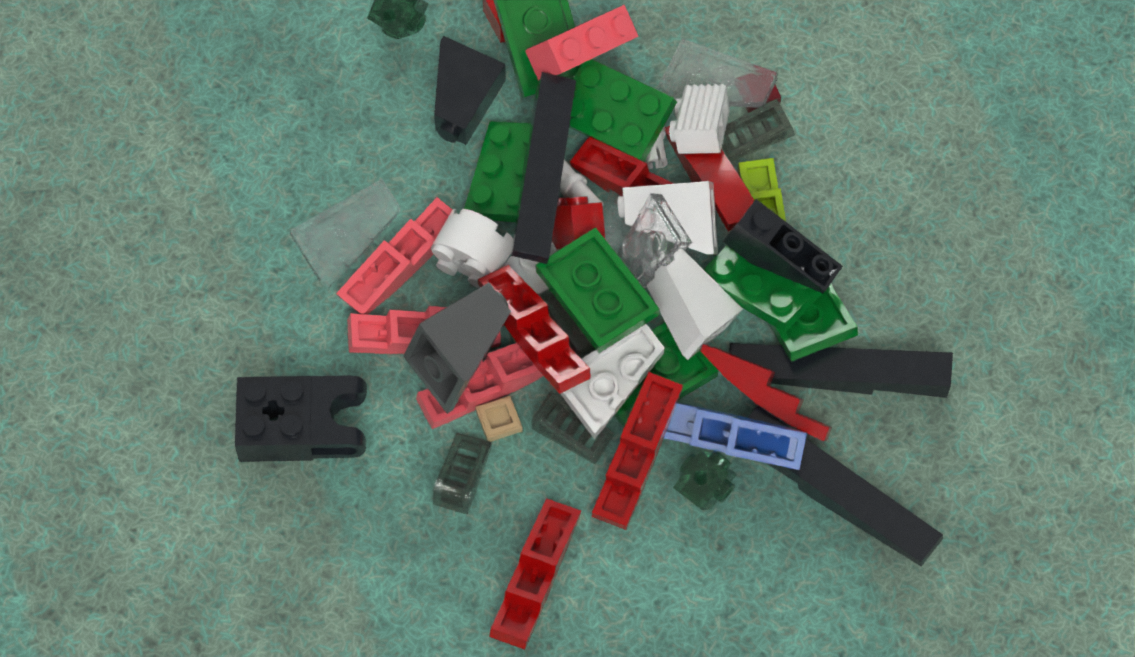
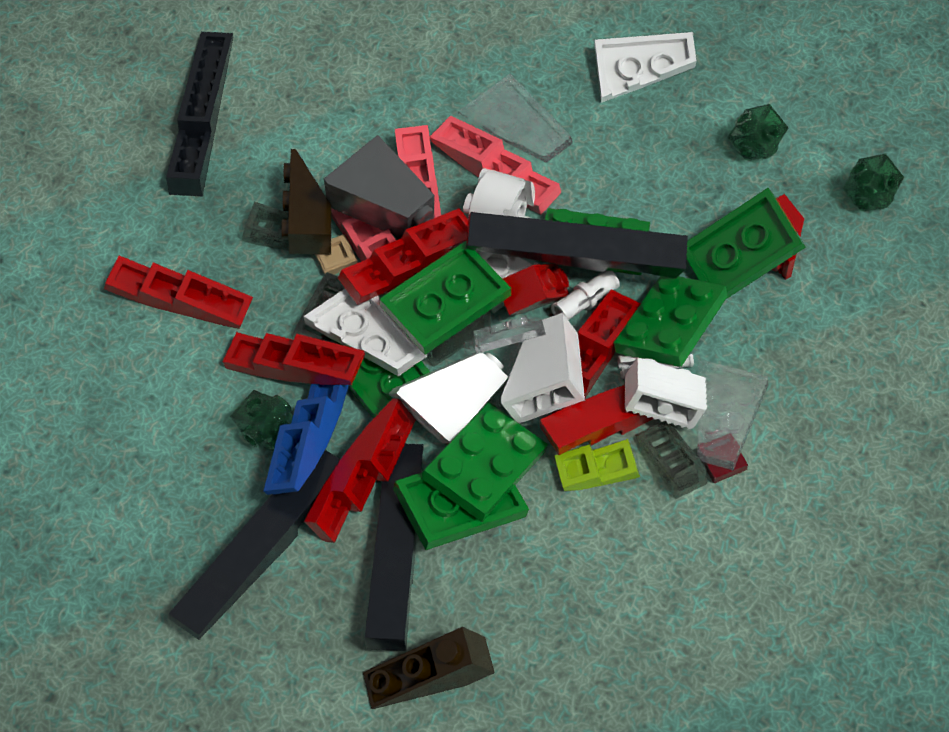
camera: 90 degrees right, 5 degrees down
(282, 111) = (641, 61): none -> white wing
(289, 554) = (199, 115): none -> black slope
(304, 416) = (323, 94): black brick -> none
(457, 431) = (308, 209): none -> dark brown slope
(464, 89) = (678, 194): black slope -> none
(582, 42) = (736, 277): coral arch -> none
(780, 249) = (504, 461): black slope -> none
(968, 339) = (429, 669): none -> dark brown slope

